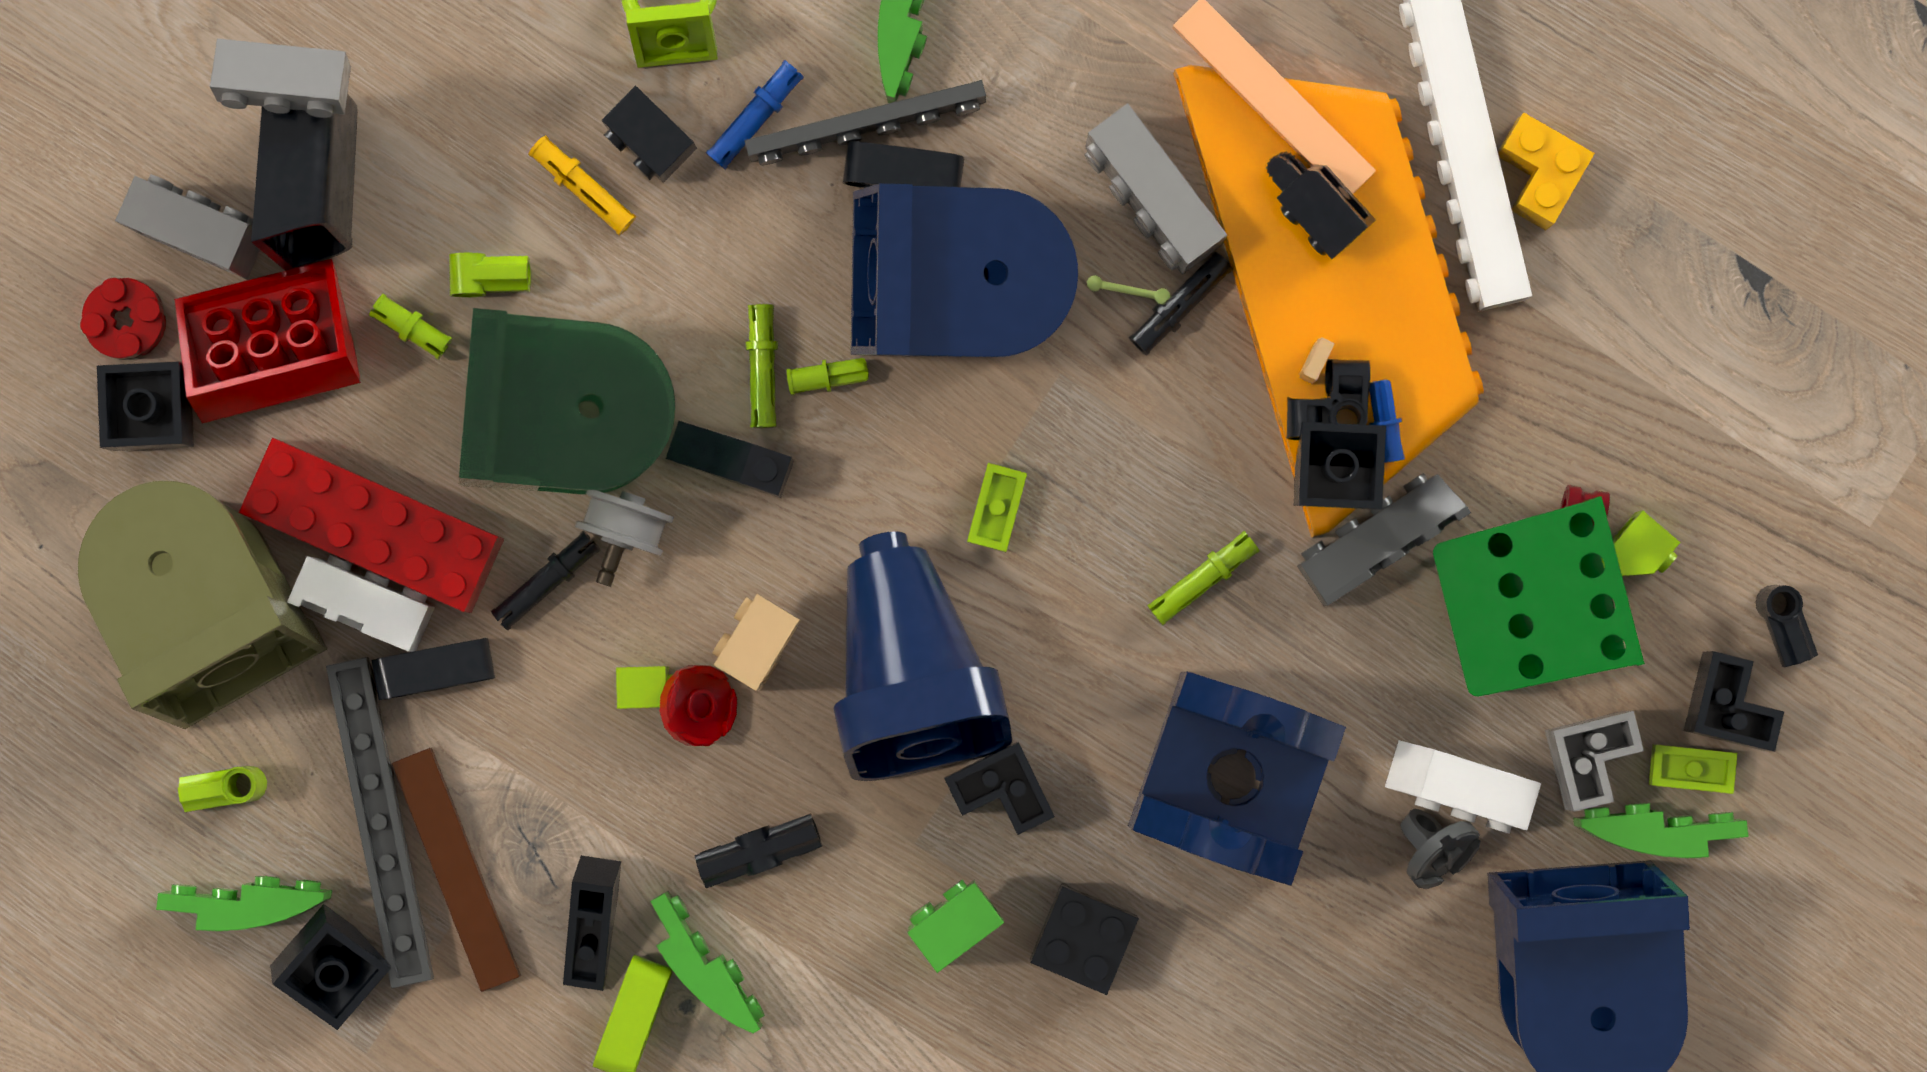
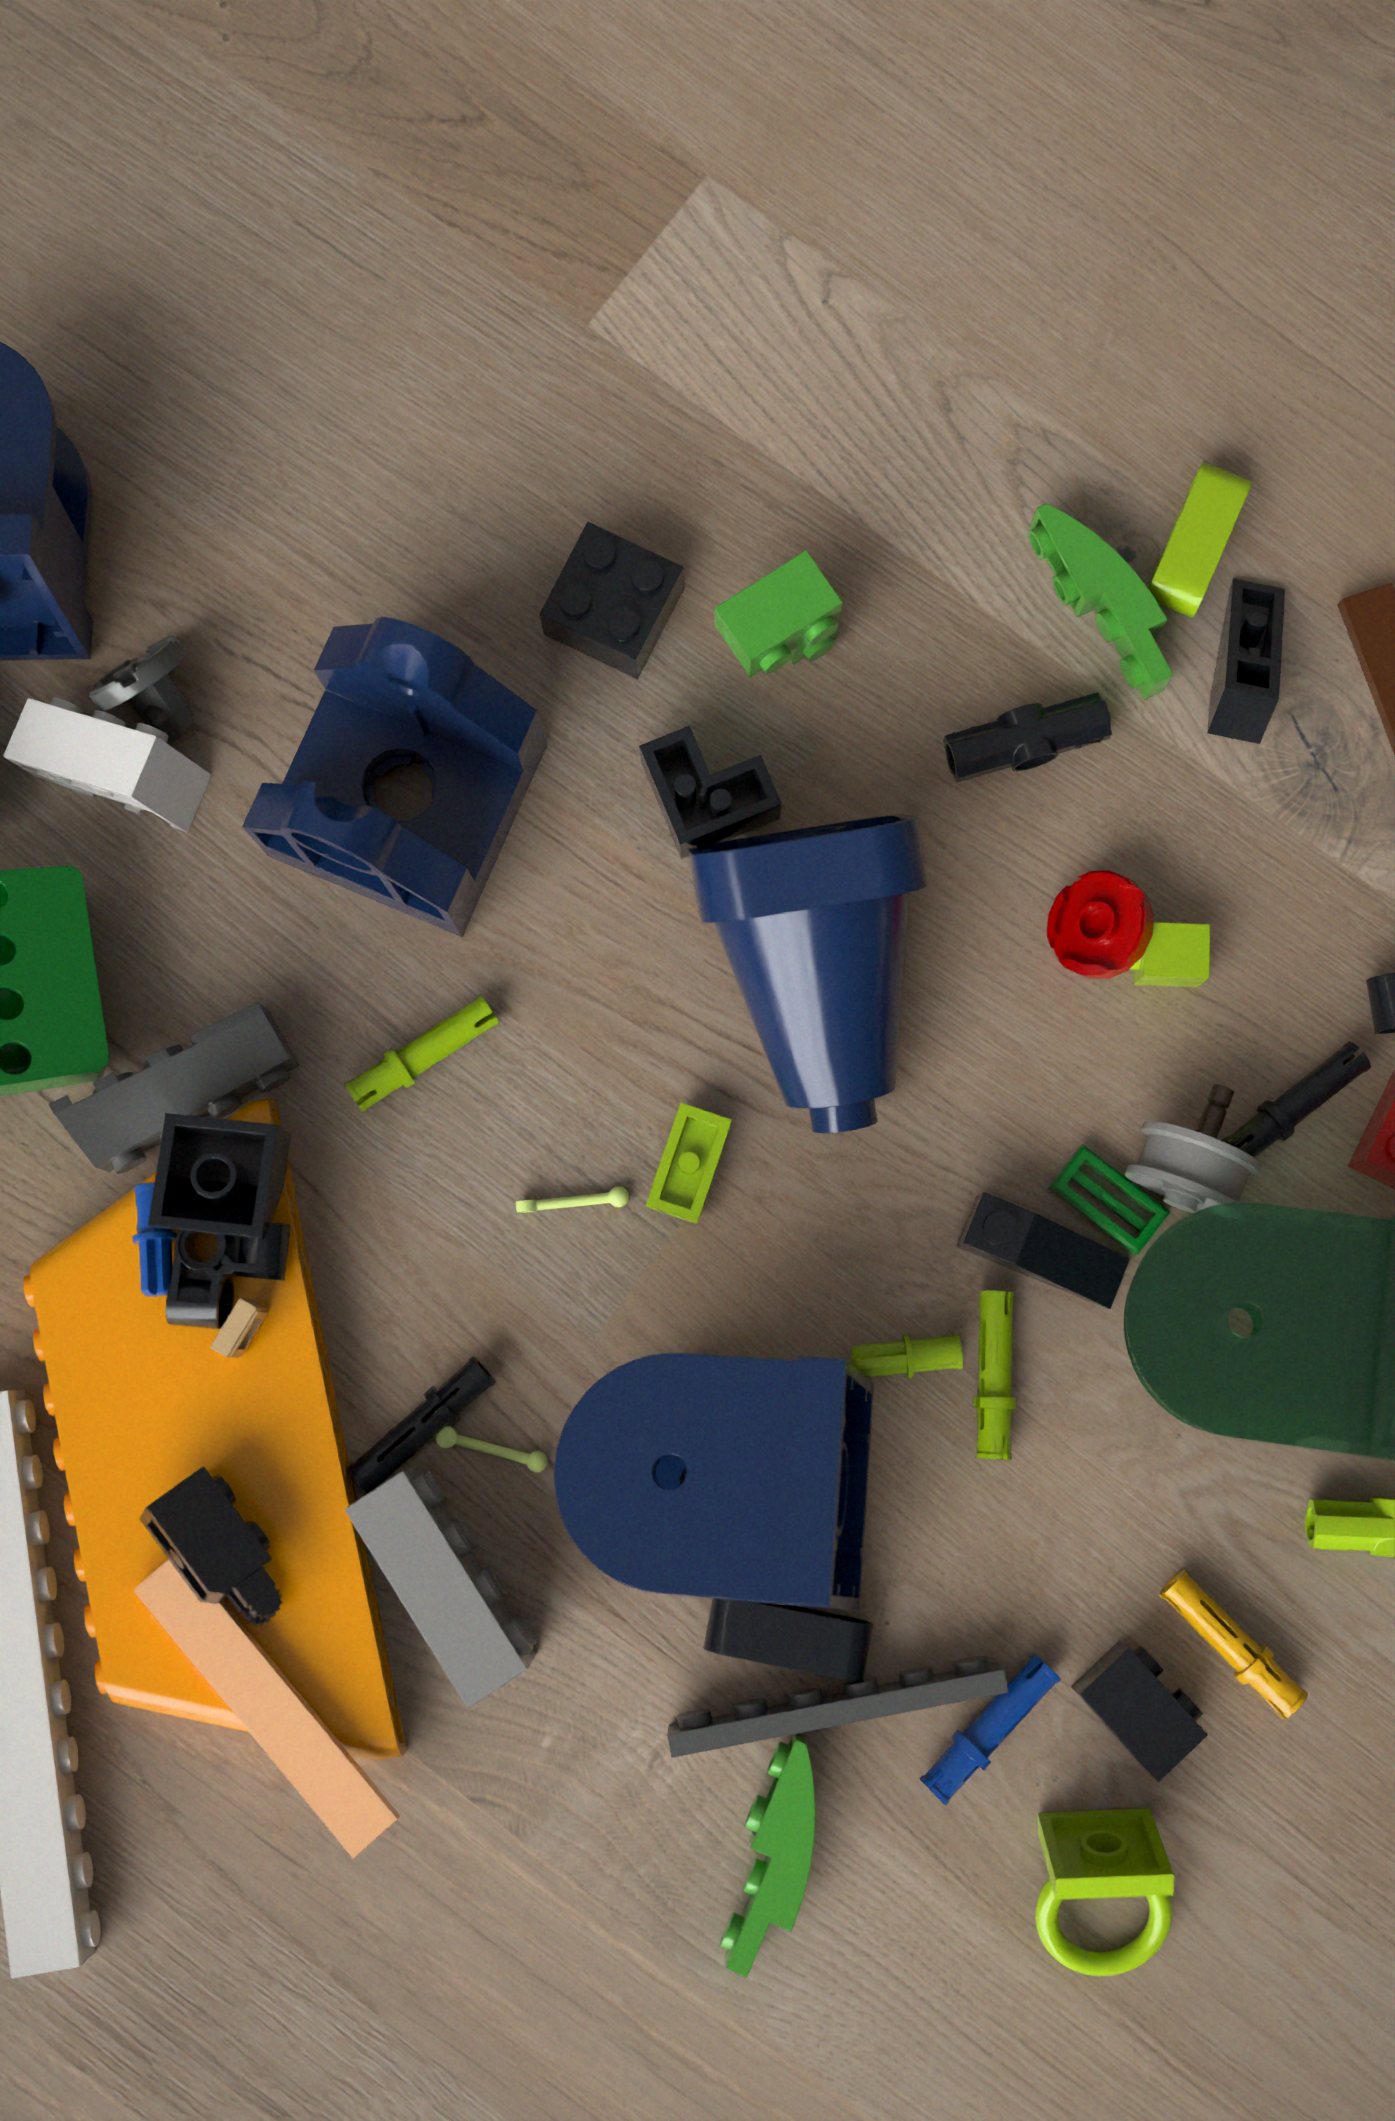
camera: 175 degrees left, 5 degrees down
(711, 520) = (1071, 1171): none -> green tile
(756, 642) = (1024, 990): tan brick -> none
(1049, 480) = (617, 1197): none -> yellowish green hinge

